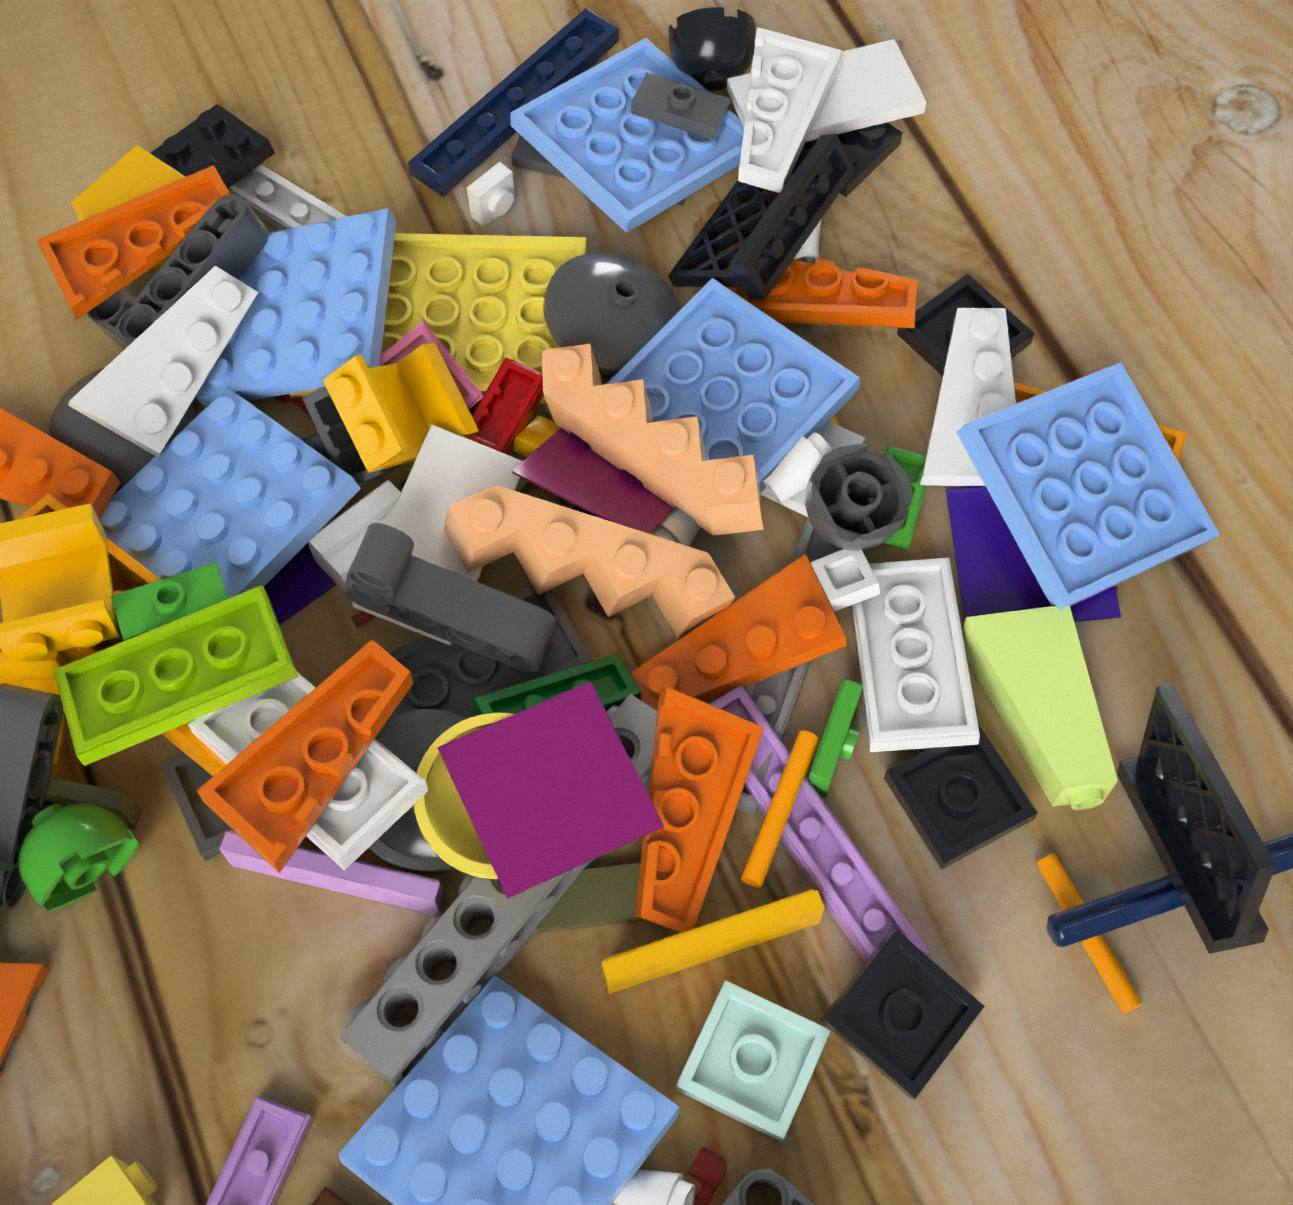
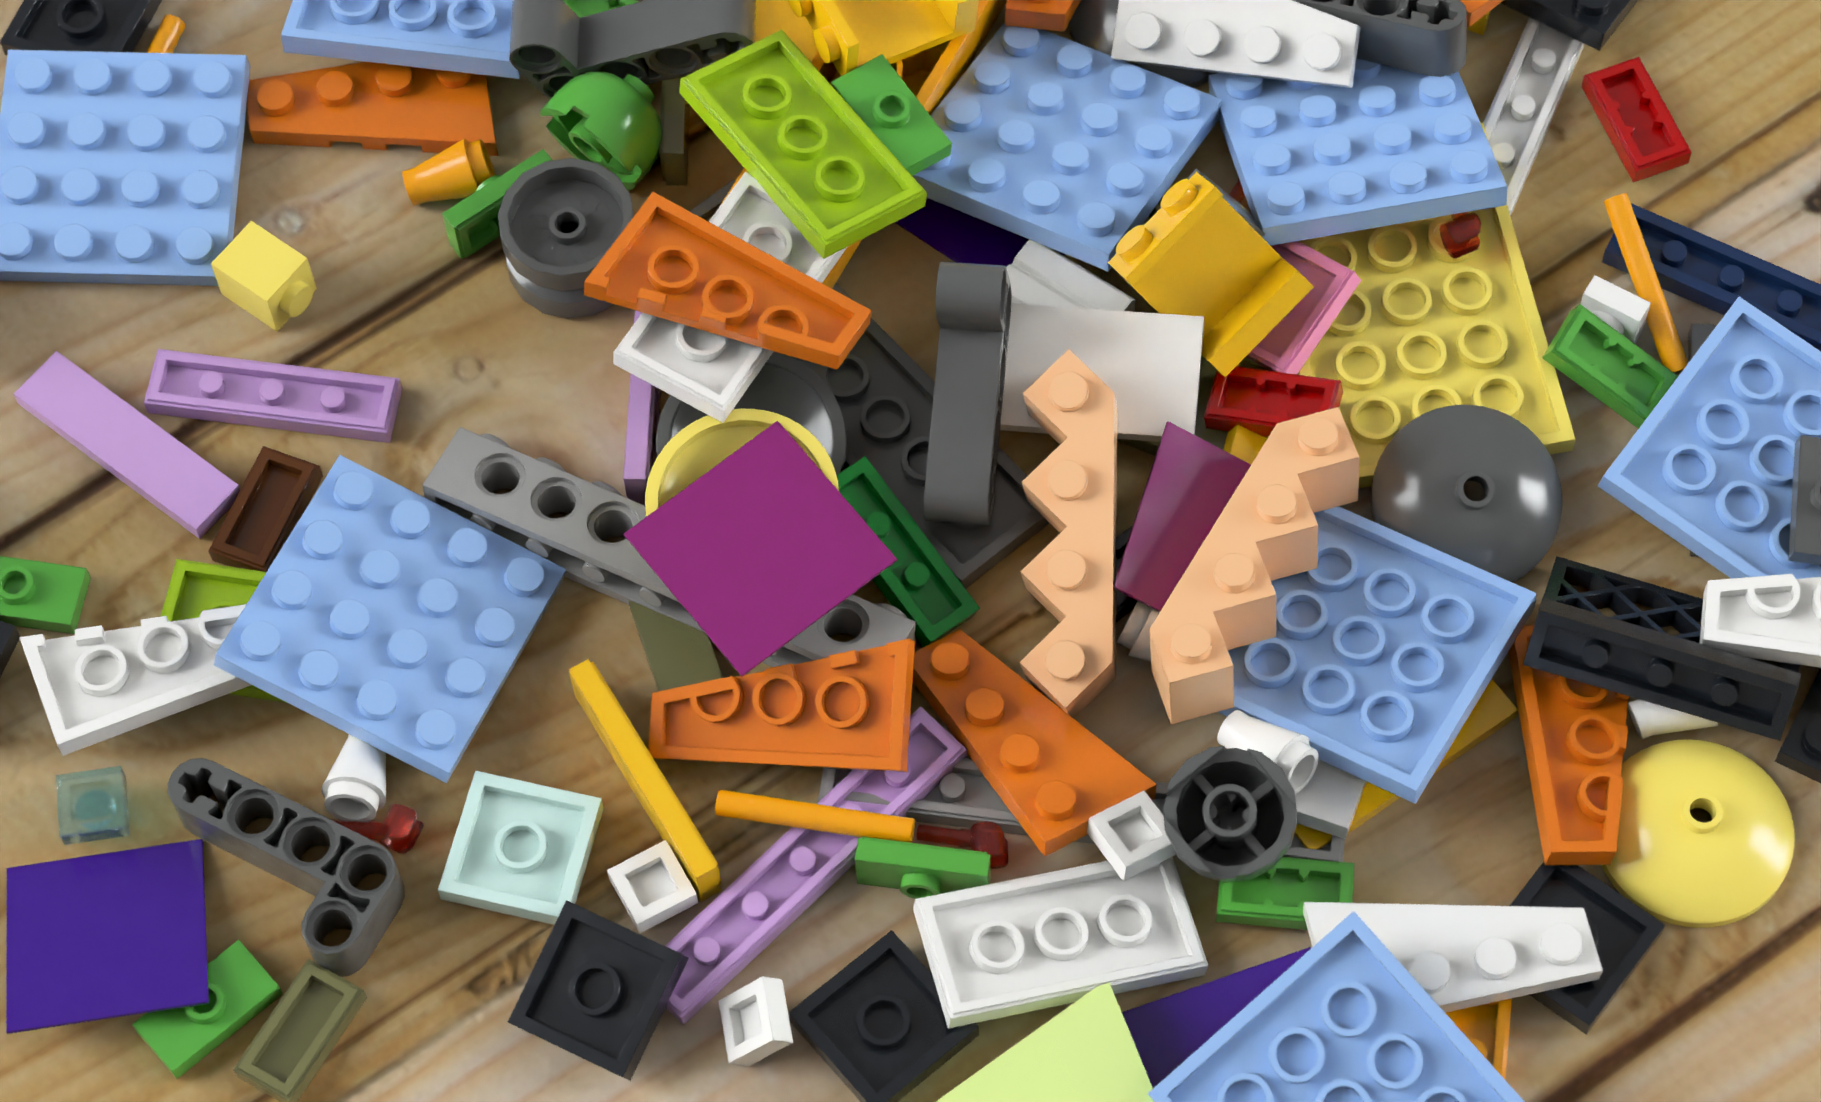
camera: 80 degrees right, 0 degrees up
(59, 1009) = (449, 174): none -> light orange cone
(109, 968) = (475, 219): none -> bright green plate
(172, 907) = (557, 230): none -> dark grey wheel
(337, 147) = (1636, 119): none -> red plate
(404, 261) = (1461, 234): none -> clear red hand
(473, 166) = (1646, 282): none -> light orange bar
(533, 206) = (1609, 366): none -> bright green plate
(809, 954) = (652, 886): none -> white plate
(819, 691) = (982, 837): none -> clear red hand
(921, 249) = (1691, 868): none -> light yellow dish
(945, 891) = (755, 1021): none -> white plate

